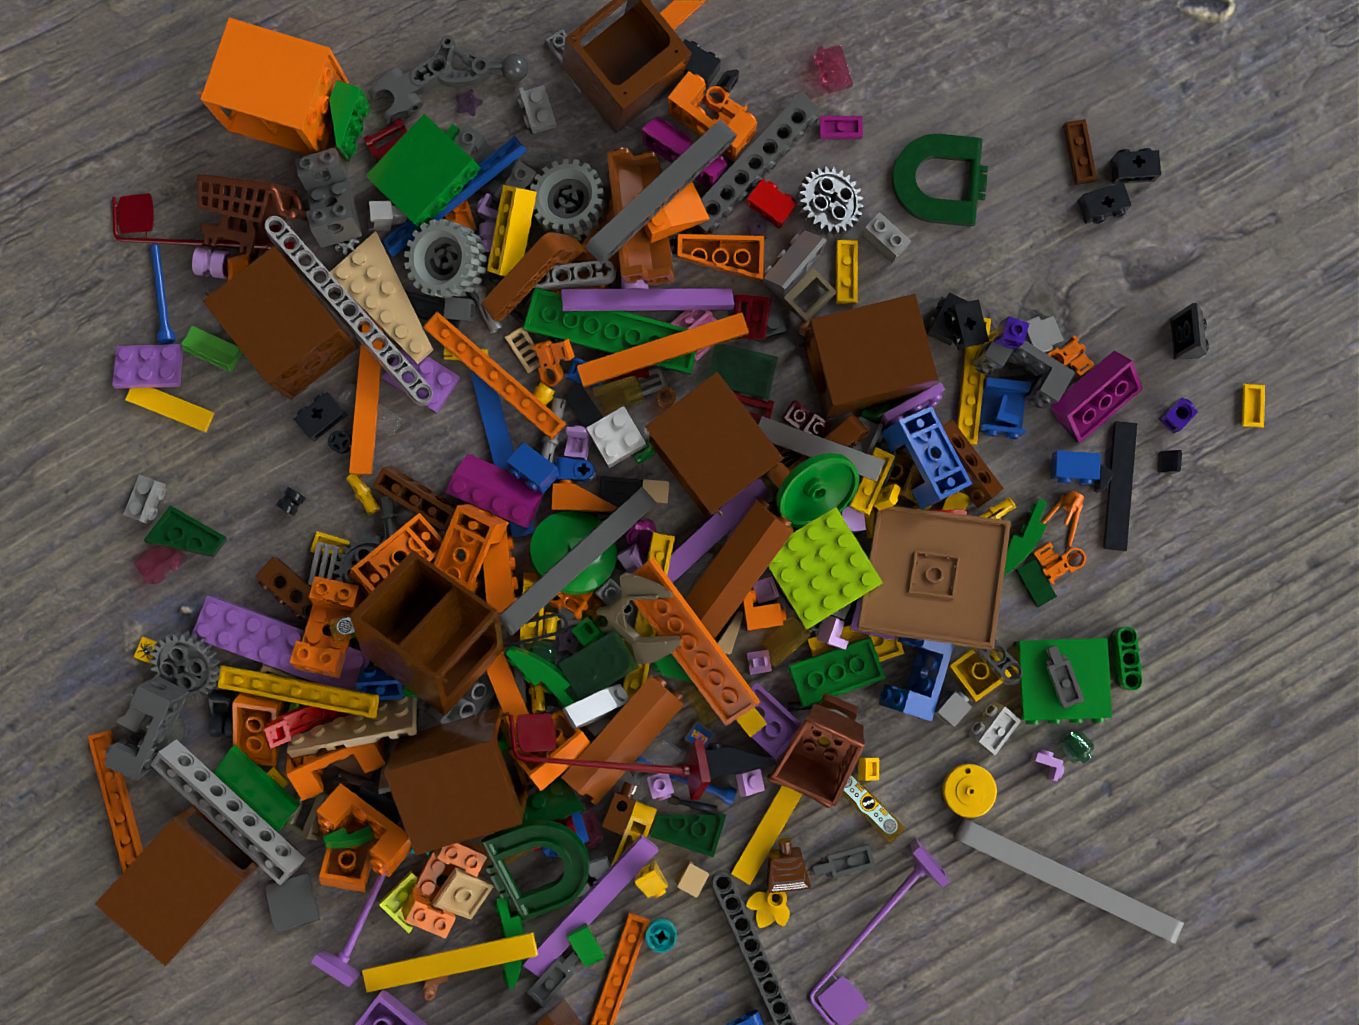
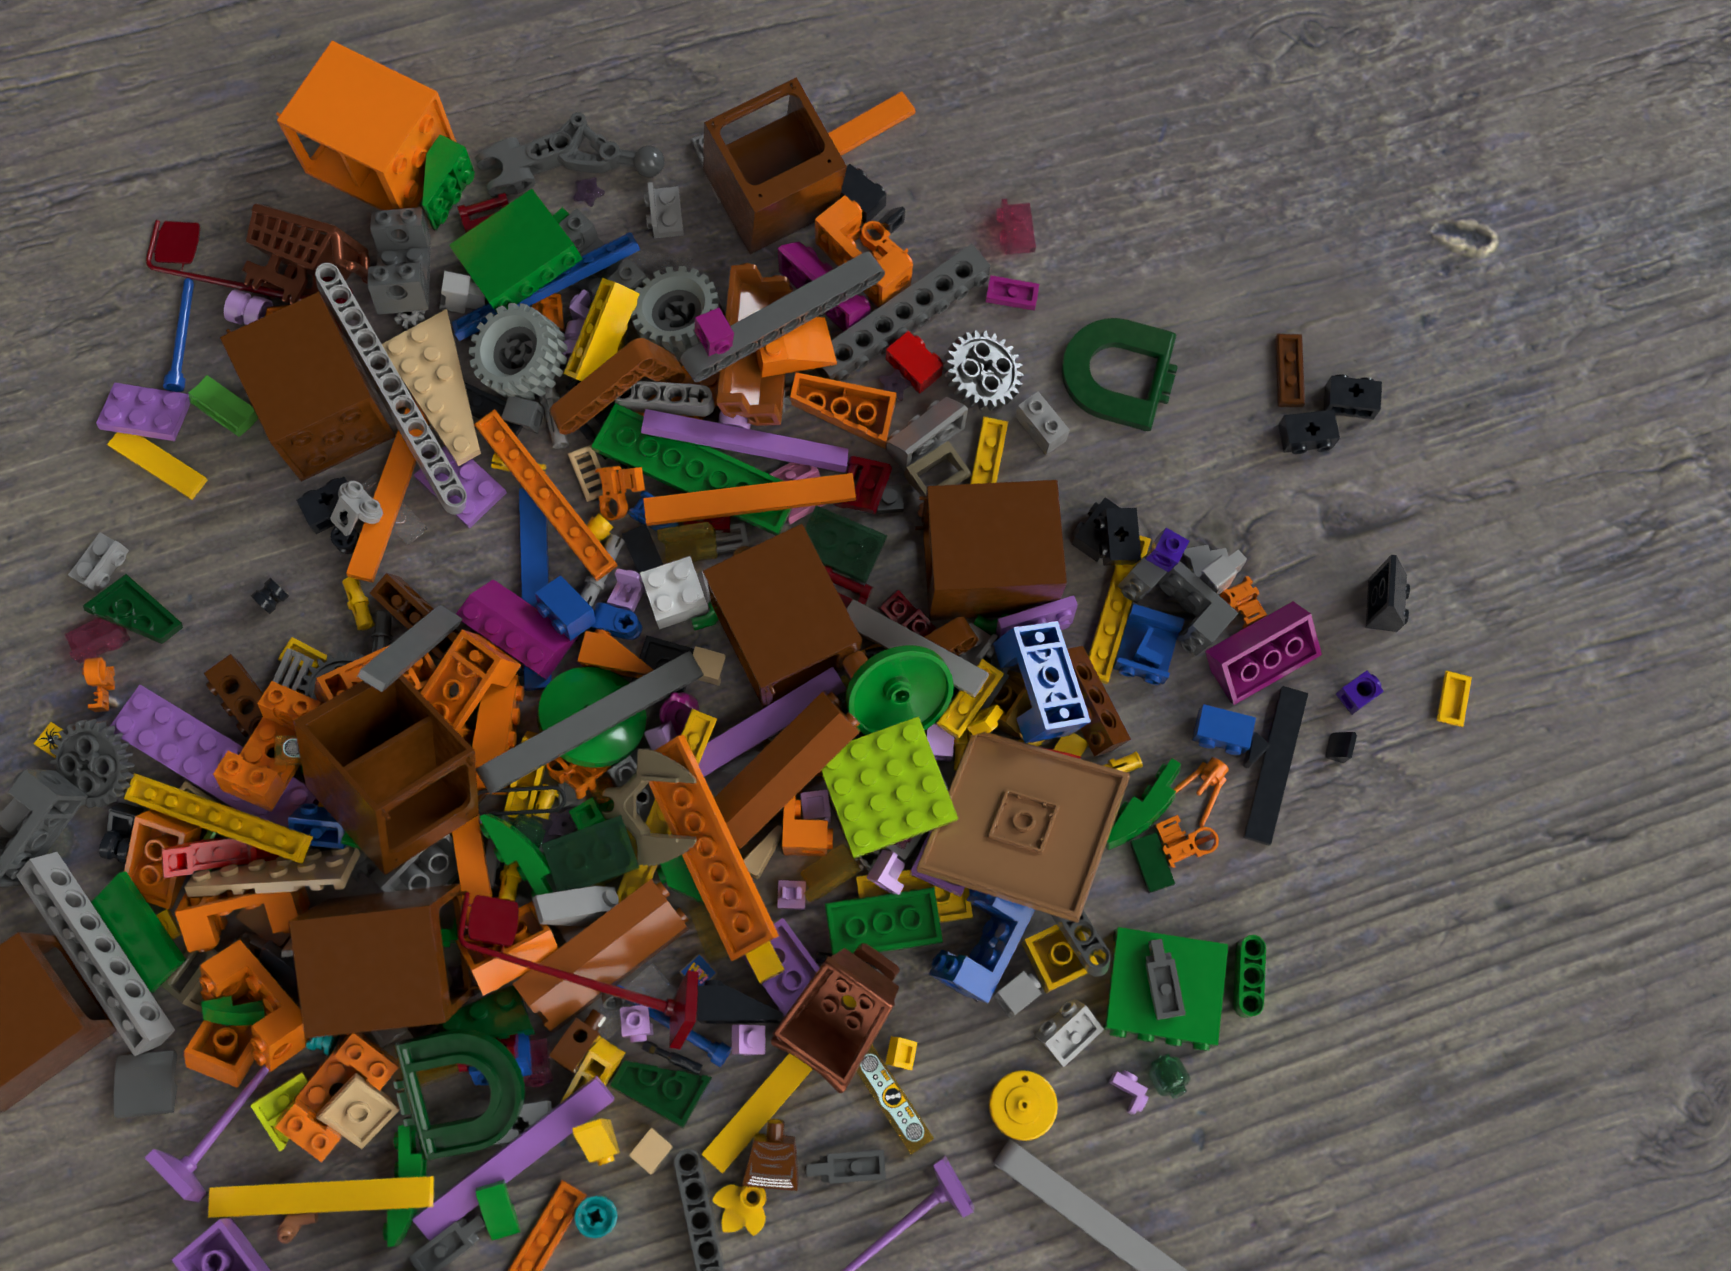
camera: 10 degrees right, 10 degrees down
(172, 593) = (101, 676): none -> orange piece
(345, 414) = (357, 504): none -> light grey bracket
(422, 532) = (409, 648): none -> dark grey tile
(611, 220) = (714, 332): none -> magenta brick
(1056, 339) = (1222, 571): none -> light grey piece

